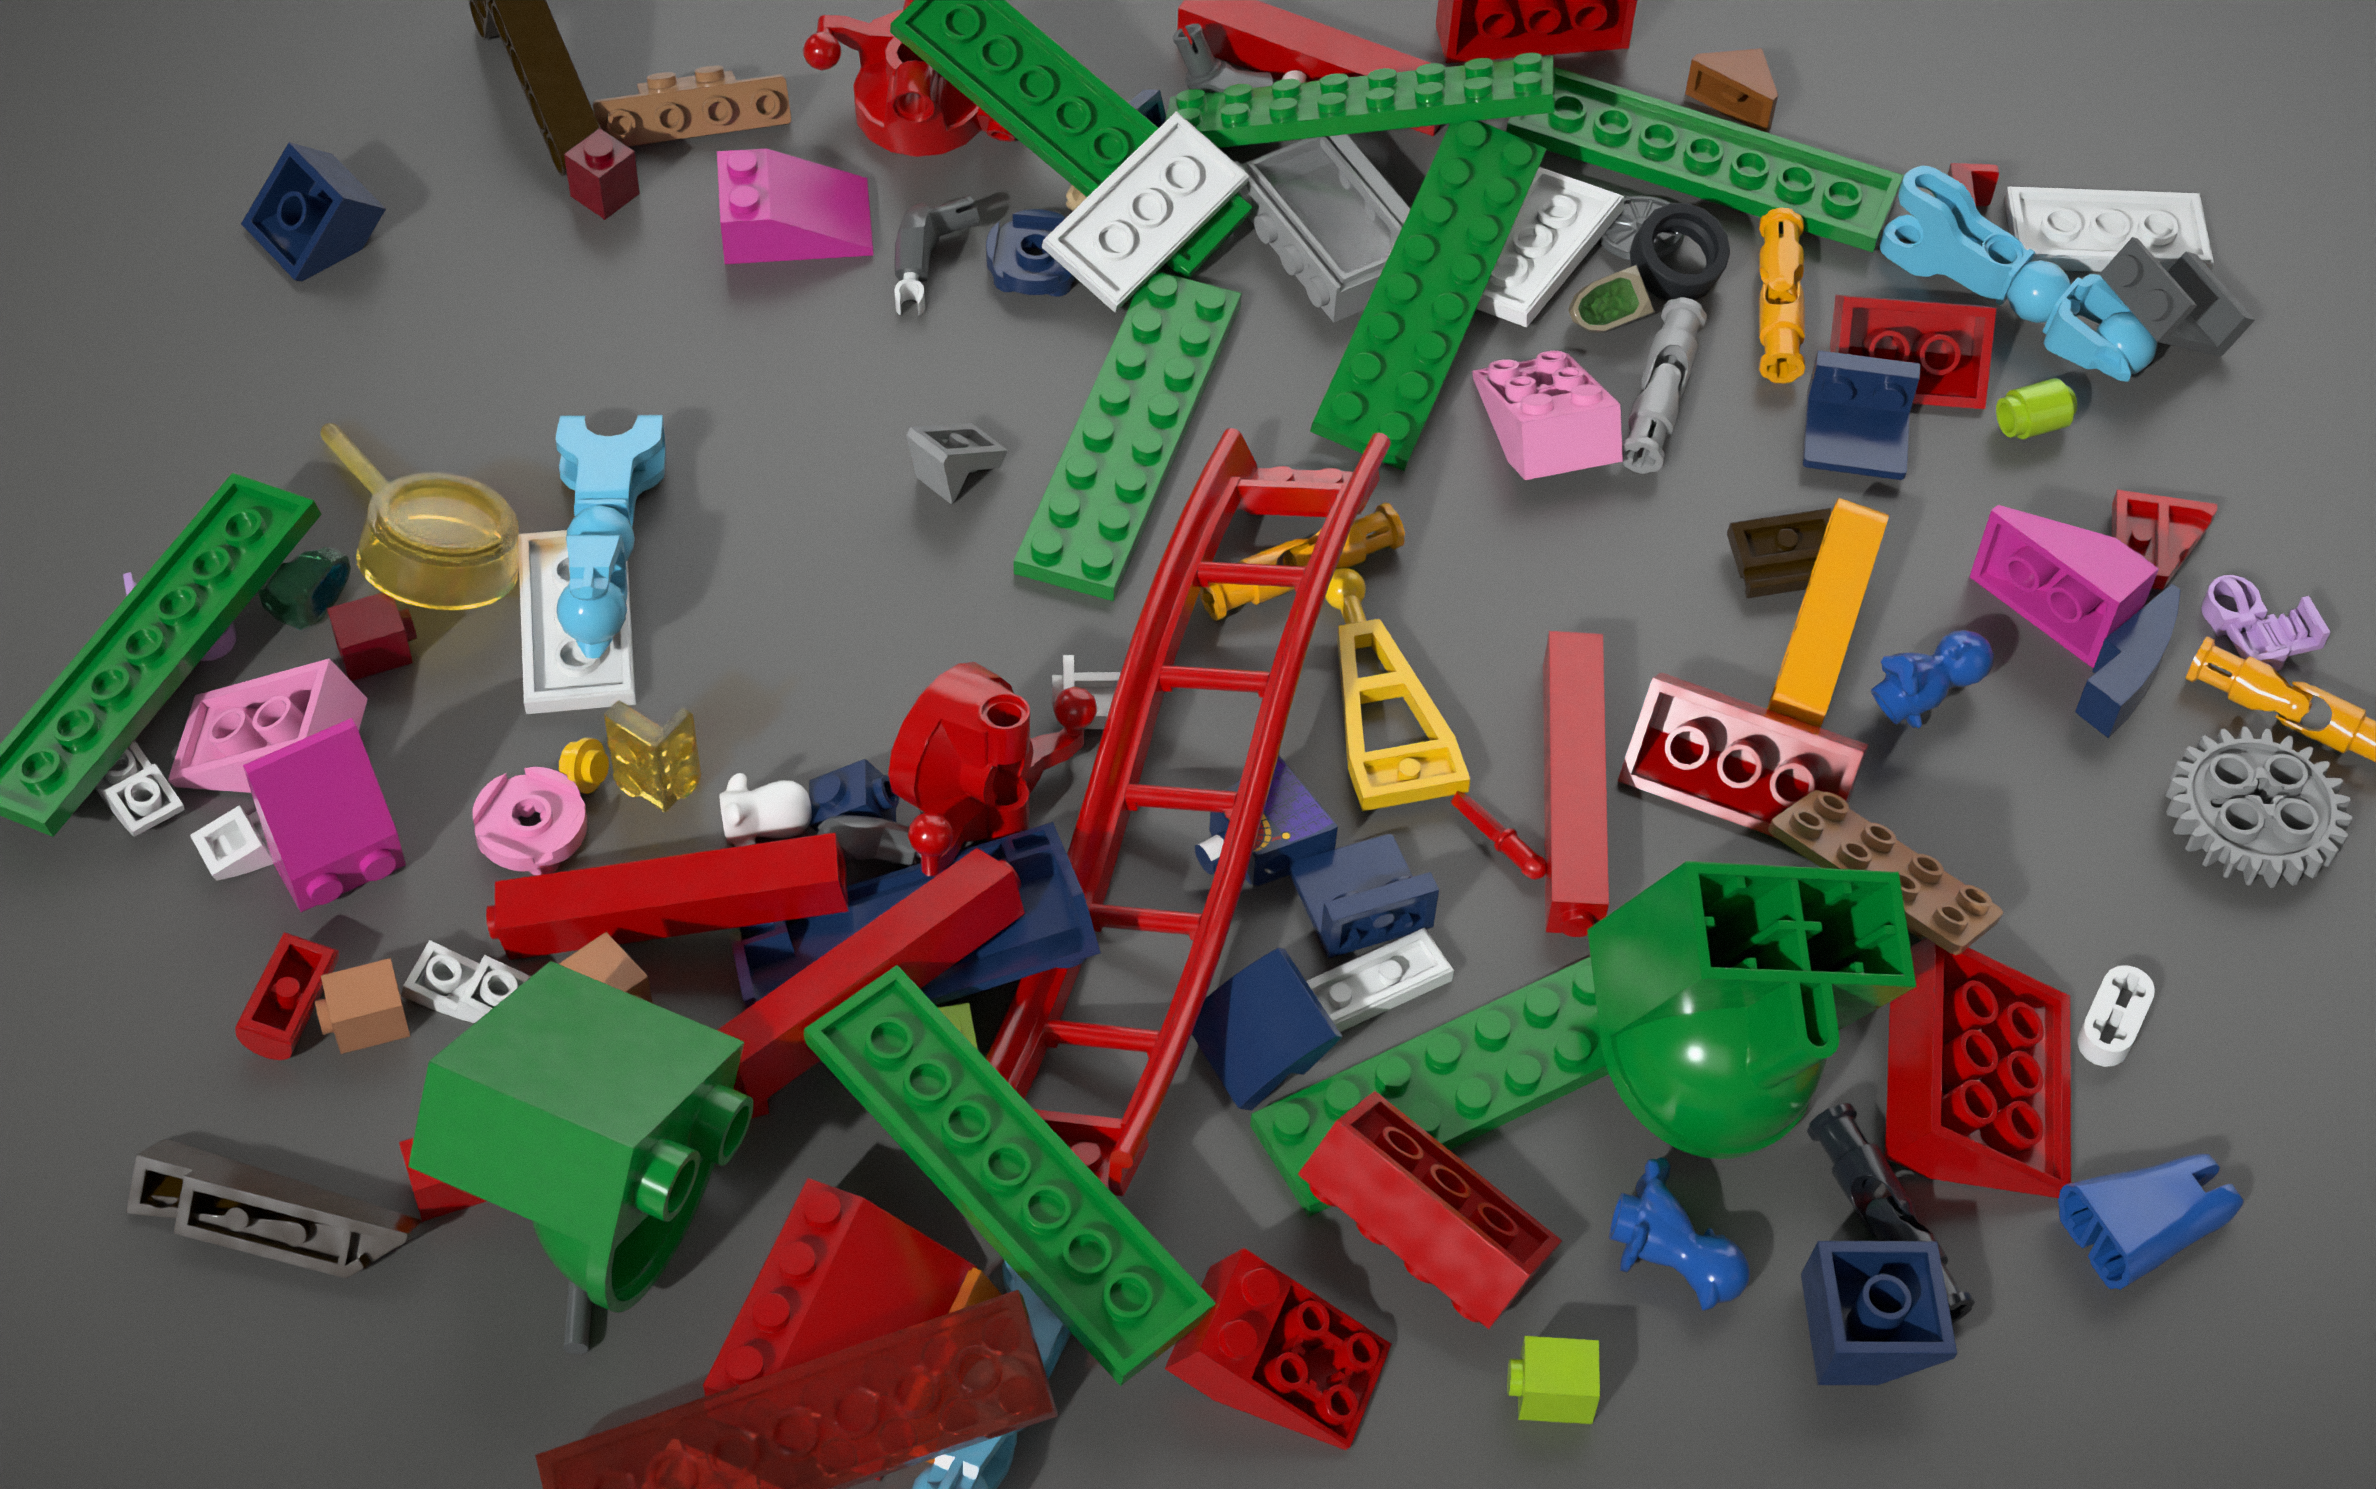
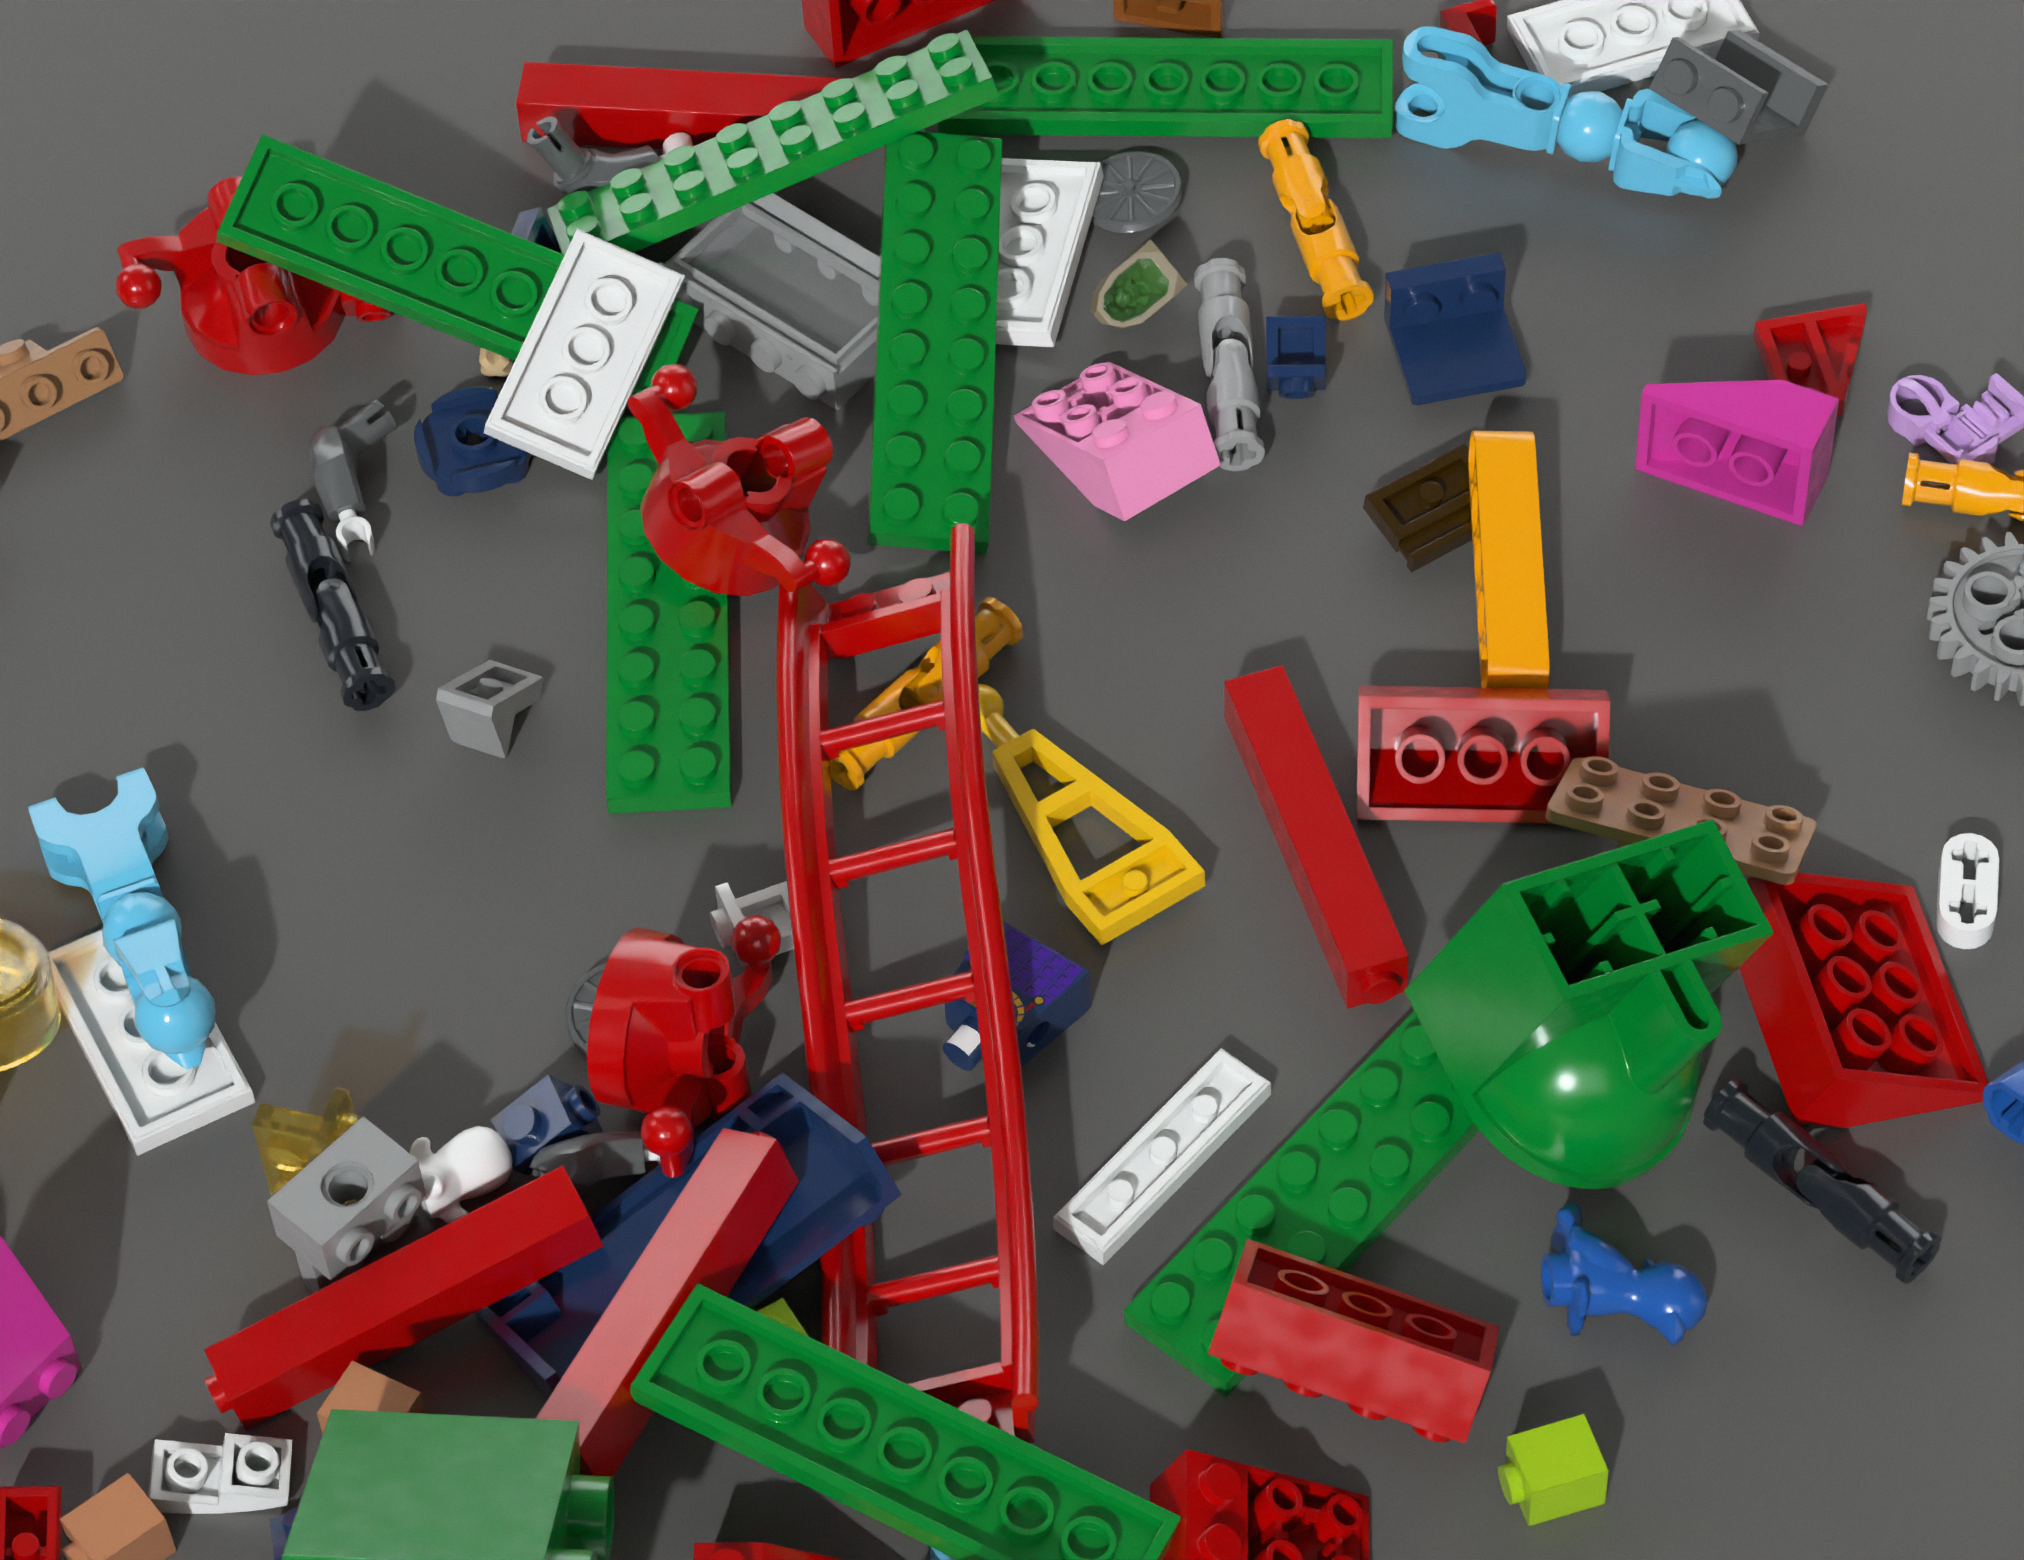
camera: 15 degrees left, 0 degrees up
(537, 846) = (210, 1302): bright pink plate -> none
(584, 764) = (235, 1188): yellow plate -> none
(640, 829) = (335, 1237): none -> light grey brick
(790, 209) = (172, 481): dark pink slope -> none
(870, 334) = (332, 603): none -> black piece
(1211, 366) = (738, 507): none -> red piece
(1263, 1028) = (1102, 1214): dark blue slope -> none
(1363, 895) = (1143, 1035): dark blue bracket -> none
(1505, 839) = (1266, 924): red piece -> none
(1702, 229) = (1201, 173): black tyre -> none
(1720, 395) = (1295, 355): none -> dark blue bracket
(1876, 1310) = (1848, 1282): dark blue slope -> none
(1922, 681) = (1635, 602): blue animal -> none
(1944, 338) = (1502, 211): red slope -> none
(2036, 409) = (1636, 259): lime brick -> none
(2129, 664) = (1840, 509): dark blue slope -> none

